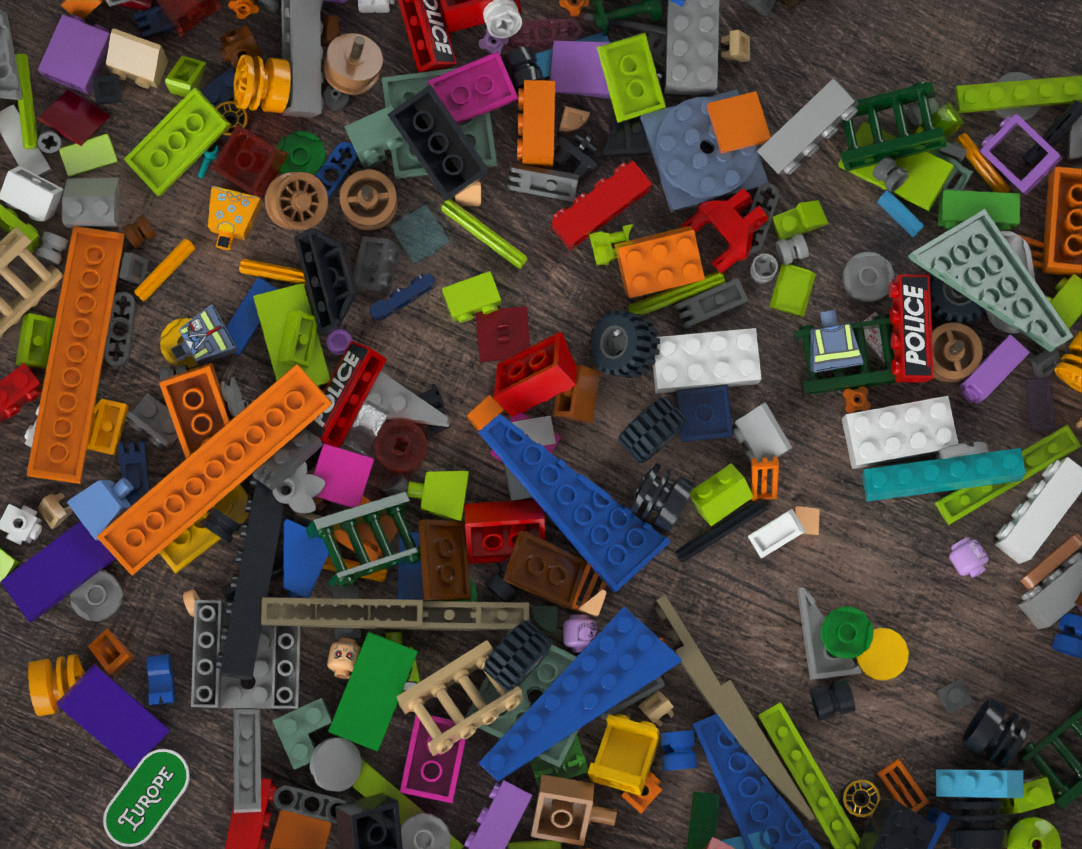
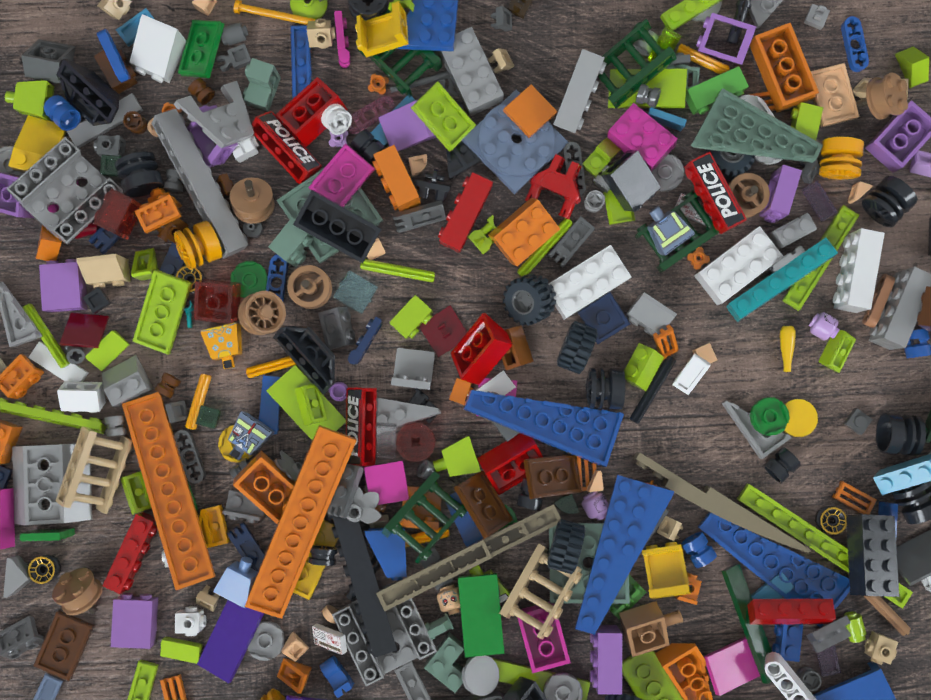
camera: 20 degrees left, 5 degrees up
(127, 621) = (294, 647): none -> light nougat slope
(167, 293) = (208, 417): none -> clear green plate
(176, 629) = (329, 639): none -> white tile
(235, 23) = (158, 213): none -> orange bracket
(315, 681) = (438, 626): none -> sand green piece
(442, 360) = (413, 369): none -> light grey bracket
(819, 265) = (631, 181): none -> brick
(859, 221) = (641, 132): none -> dark pink brick
(914, 557) = (787, 344): none -> yellow piece
(972, 597) = (837, 351): none -> lime slope
(987, 424) = (792, 231): none -> light grey brick

